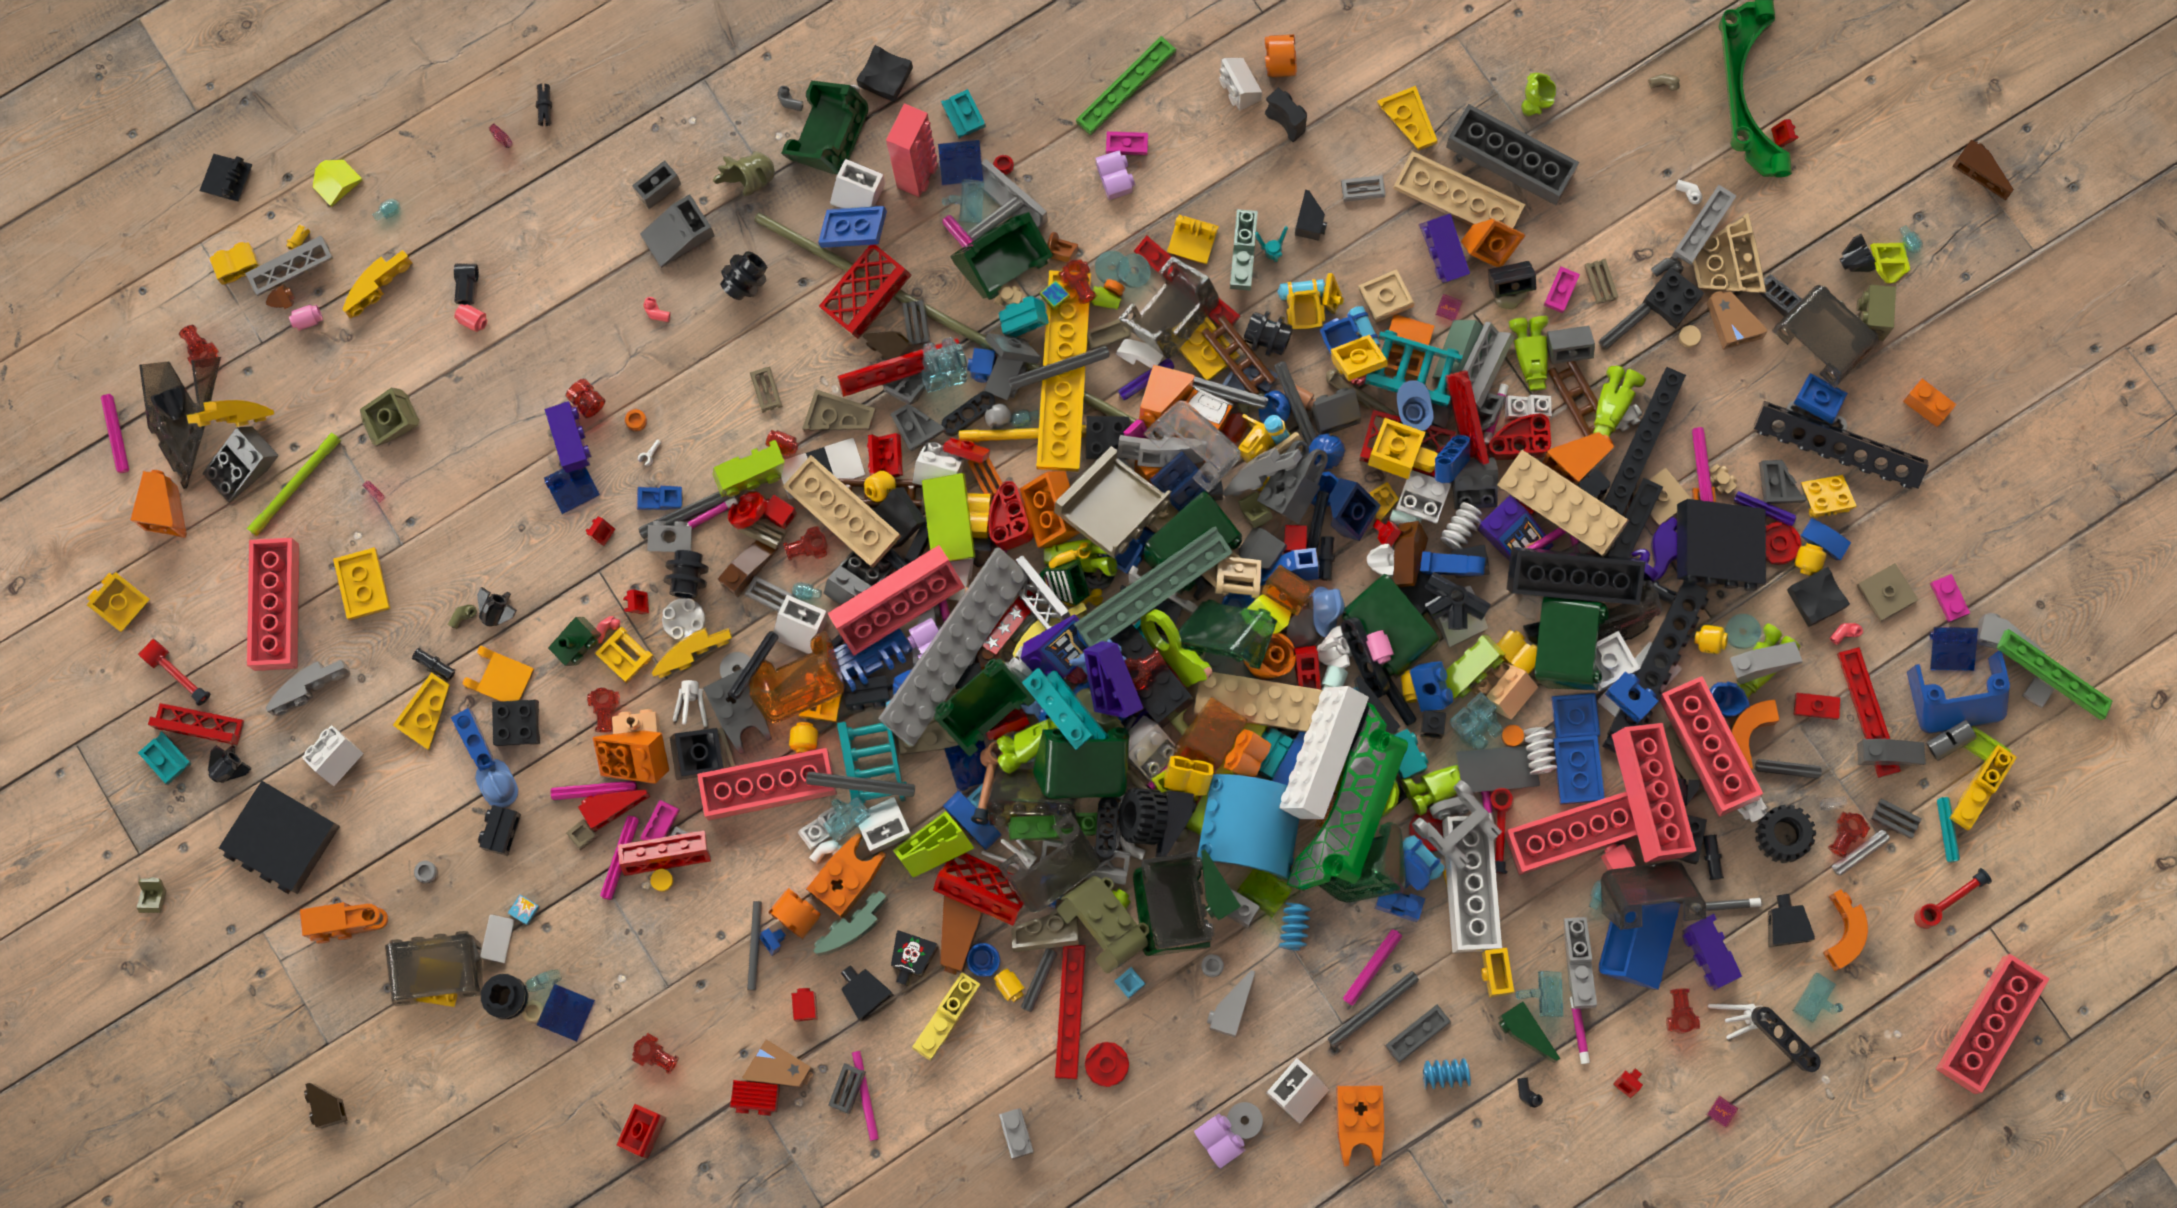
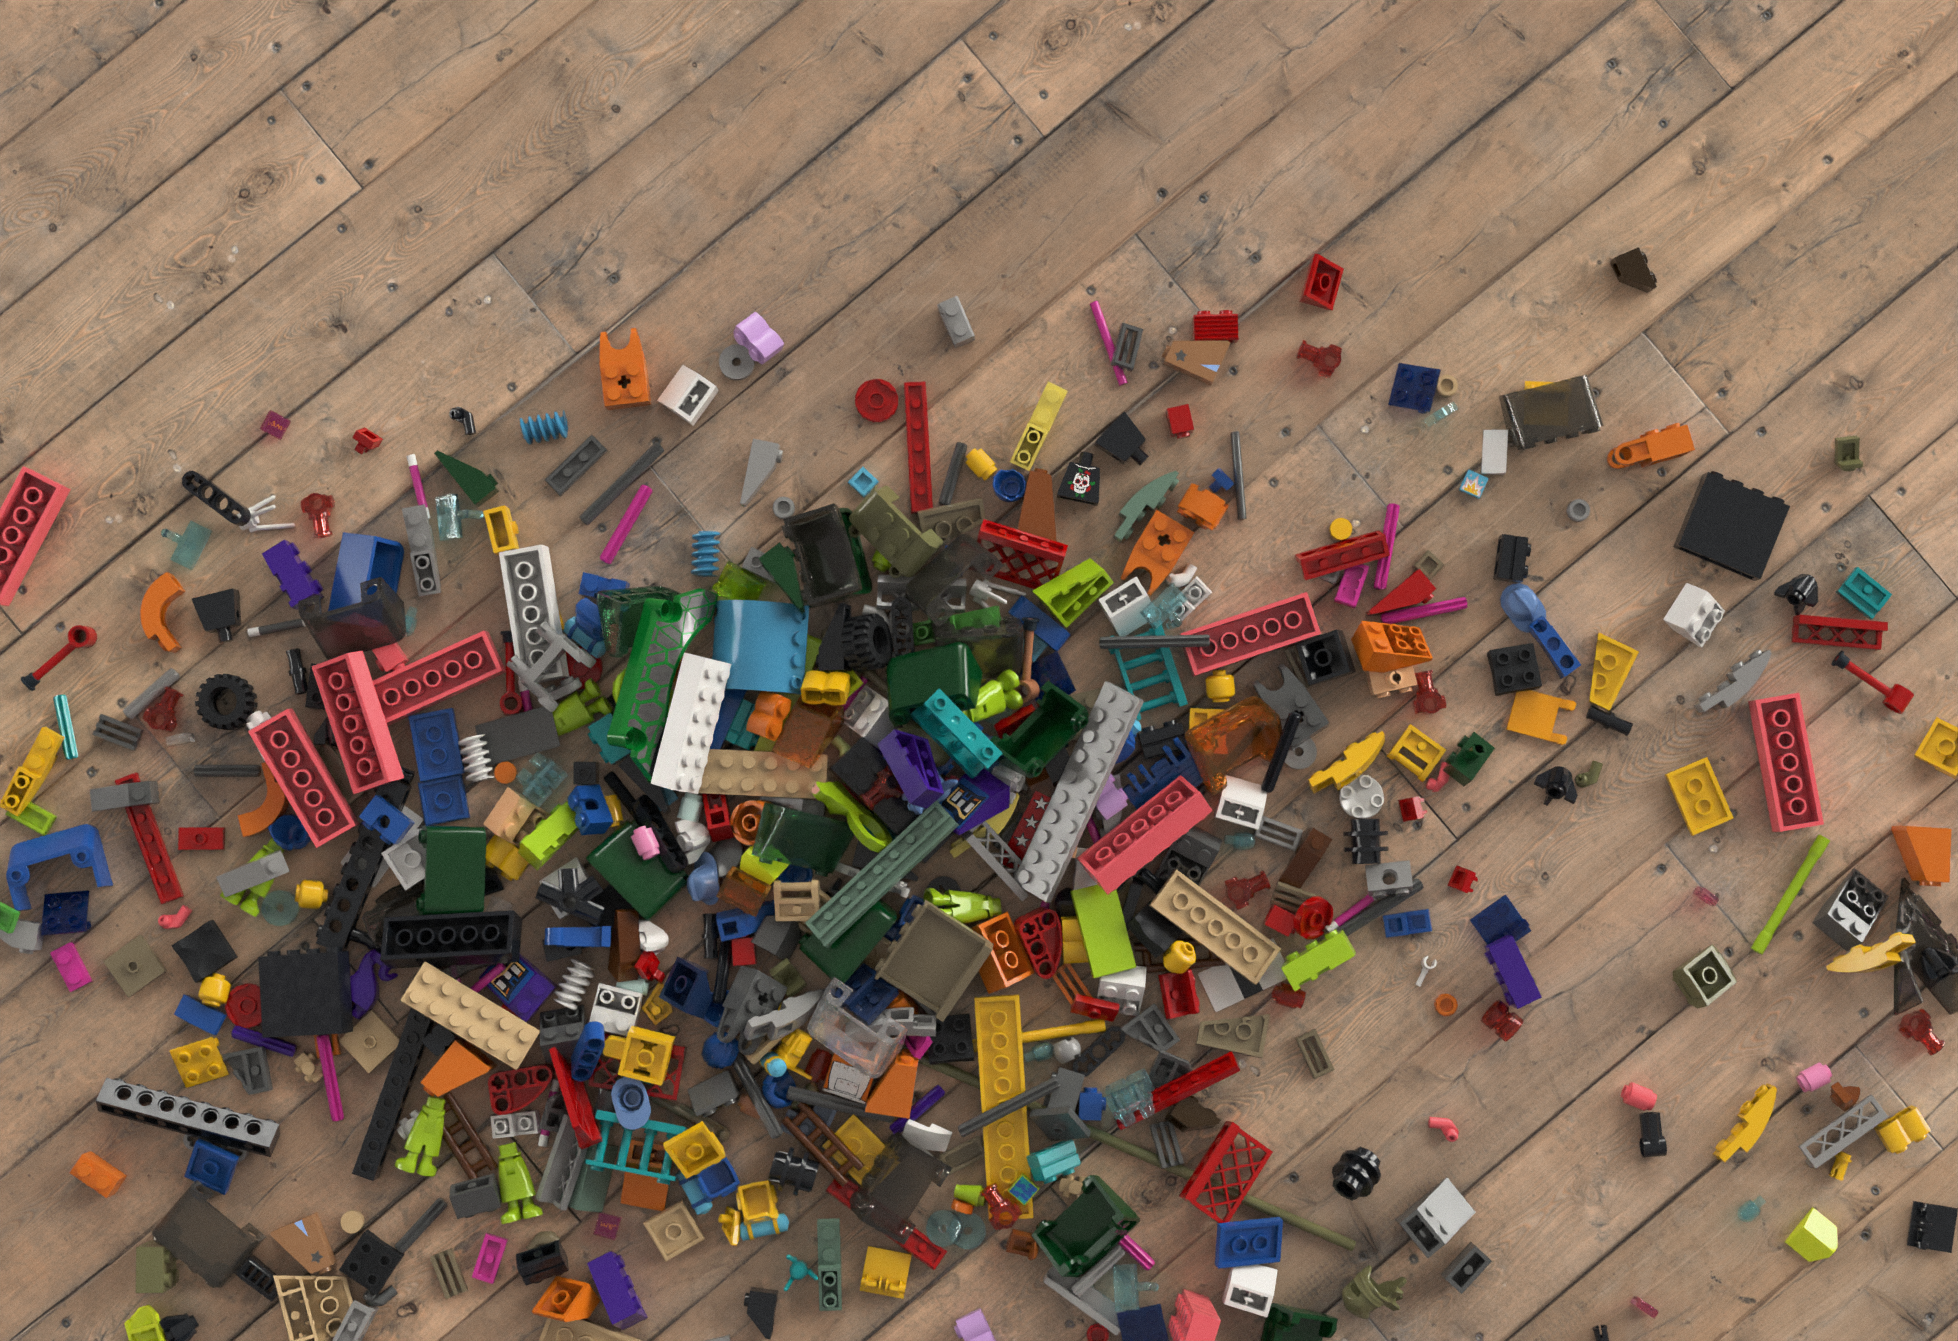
camera: 165 degrees right, 10 degrees up
(492, 994) = (1488, 386): black piece -> none
(689, 692) = (1343, 721): white plant -> none
(1067, 579) = (973, 879): torso -> none
(1637, 515) = (393, 1016): black tile -> none
(1951, 740) = (64, 816): dark grey pin -> none

